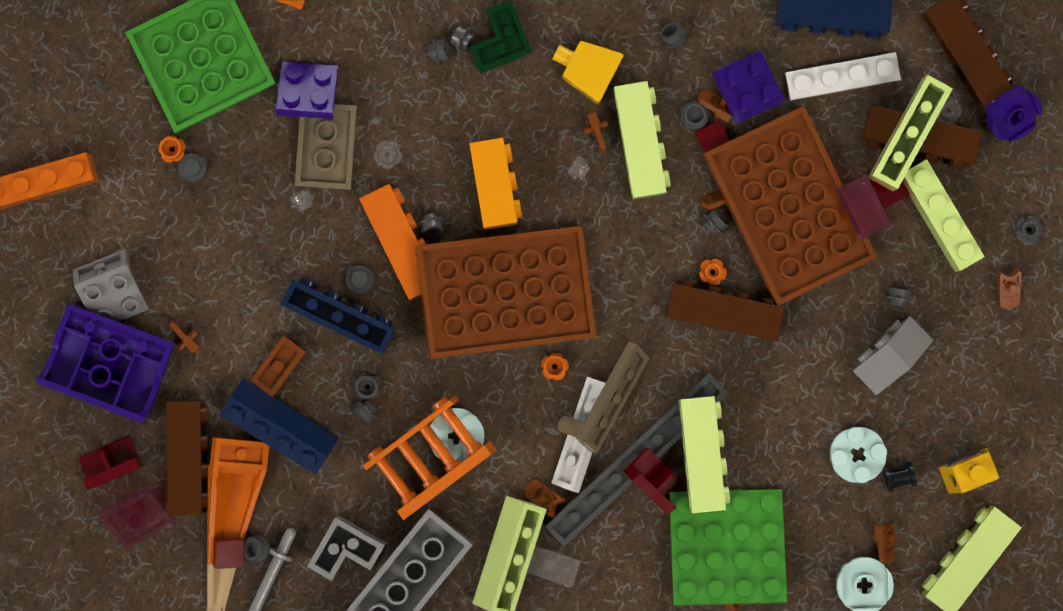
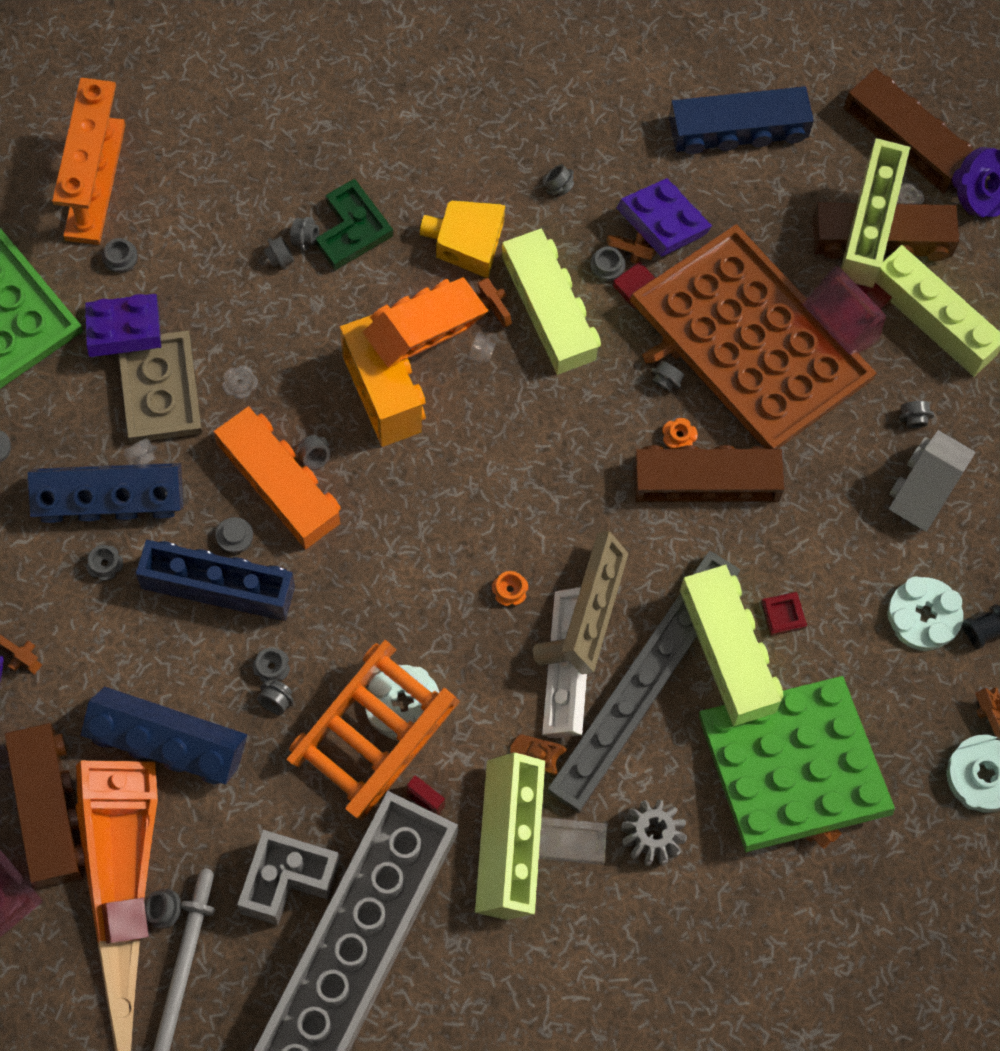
camera: 20 degrees left, 20 degrees down
(252, 279) = (102, 553): none -> dark grey plate
(270, 226) = (105, 490): none -> dark blue brick
(278, 366) = (149, 662): dark orange plate -> none
(315, 25) = (119, 255): none -> dark grey plate
(456, 512) = (425, 795): none -> dark red tile
(505, 292) = (424, 505): dark orange plate -> none
(536, 150) = (423, 320): none -> orange brick
(605, 569) = (638, 828): none -> light grey gear
(653, 479) = (675, 696): dark red panel -> none
(752, 430) = (783, 613): none -> dark red tile
(842, 76) = (771, 188): white plate -> none

